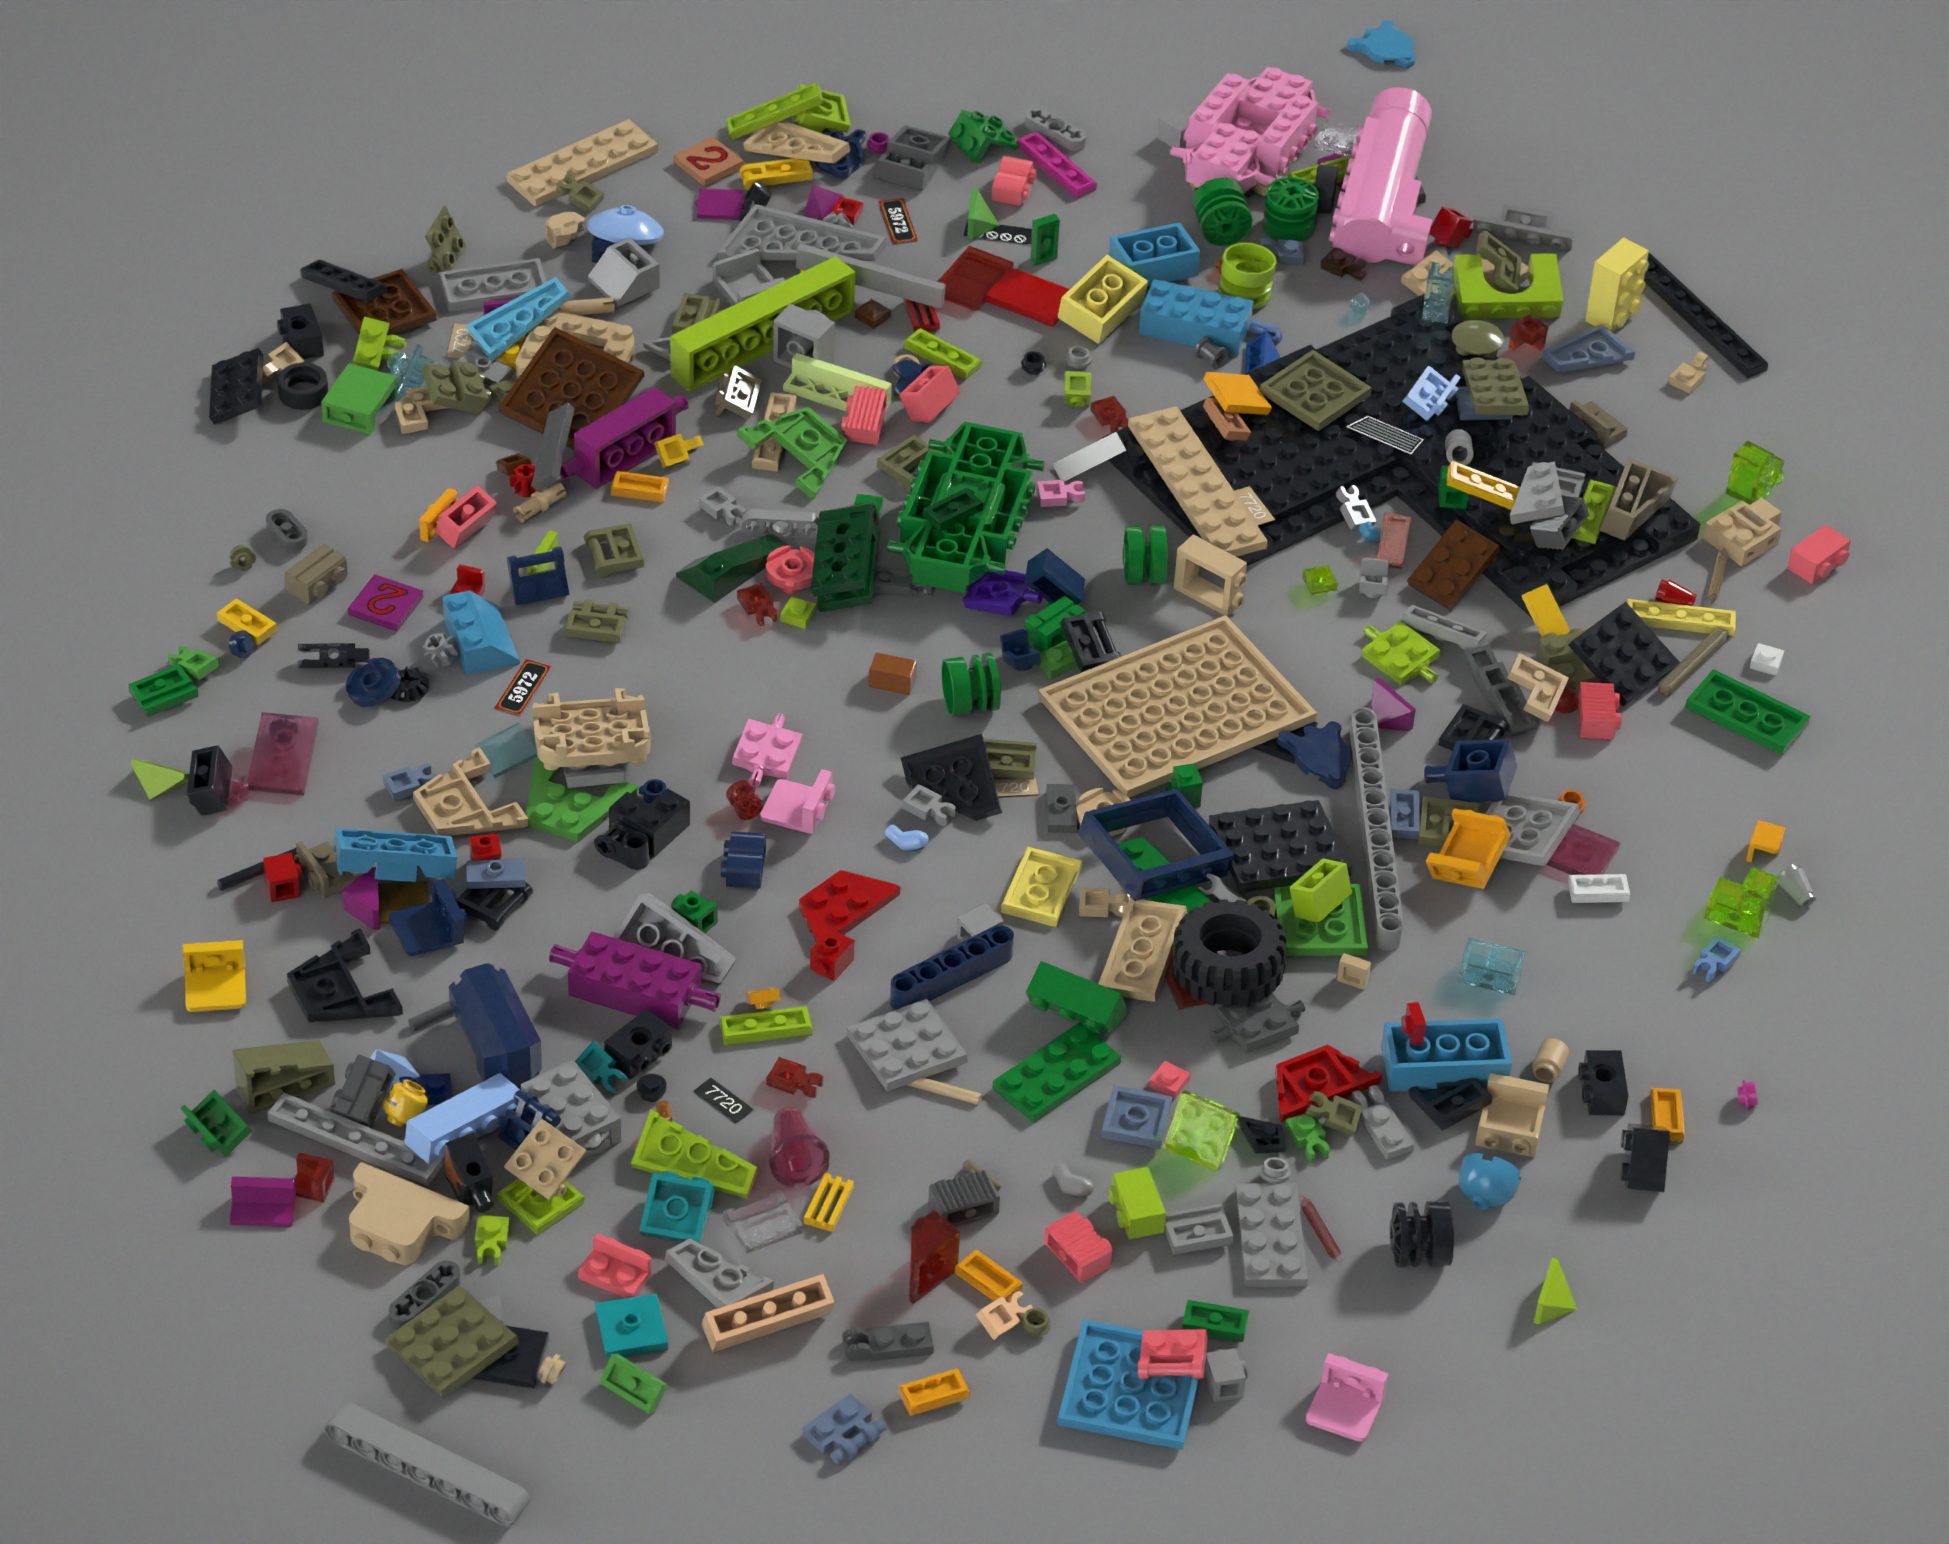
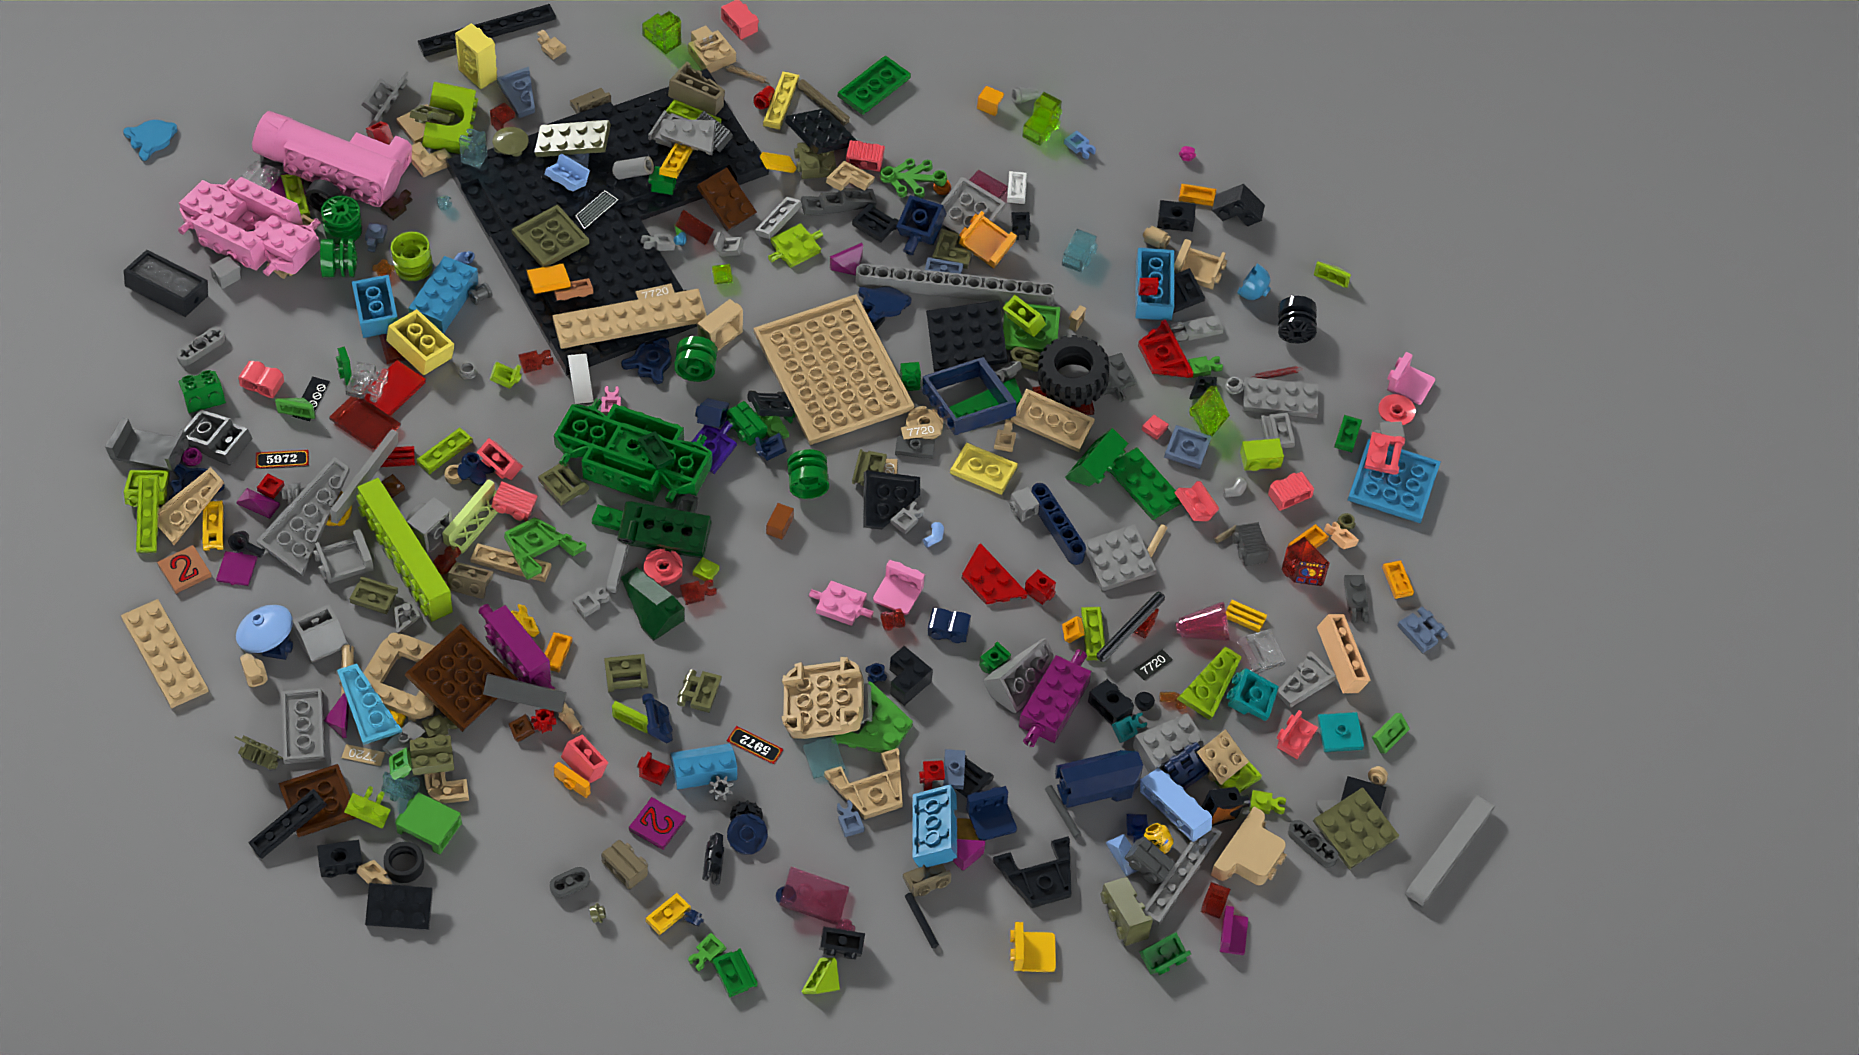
camera: 85 degrees left, 10 degrees up
(282, 877) = (937, 903): red brick -> none
(425, 353) = (400, 764): none -> bright green plate
(581, 195) = (211, 653): olive plate -> none
(625, 845) = (925, 696): black piece -> none
(763, 369) = (445, 562): none -> clear red plate
(773, 1053) = (1119, 638): none -> black axle
(883, 99) = (146, 447): none -> dark grey panel
(1024, 1126) = (1197, 502): none -> coral bracket
(1029, 259) = (361, 379): none -> clear plate
(1033, 363) = (469, 393): black plate -> none
(1056, 165) = (242, 352): dark pink tile -> none
(1082, 798) = (920, 430): none -> tan sticker
(1140, 81) = (166, 283): none -> black brick
(1146, 516) = (650, 360): none -> dark blue tile
(1260, 352) = (490, 268): blue slope -> none
(1279, 1373) = (1397, 404): none -> coral dish
(1339, 1112) = (1193, 346): olive plate -> none
(1525, 895) = (1021, 223): none -> black plate
(1572, 742) = (892, 175): none -> bright green plant
(1767, 659) = (825, 66): white plate -> none

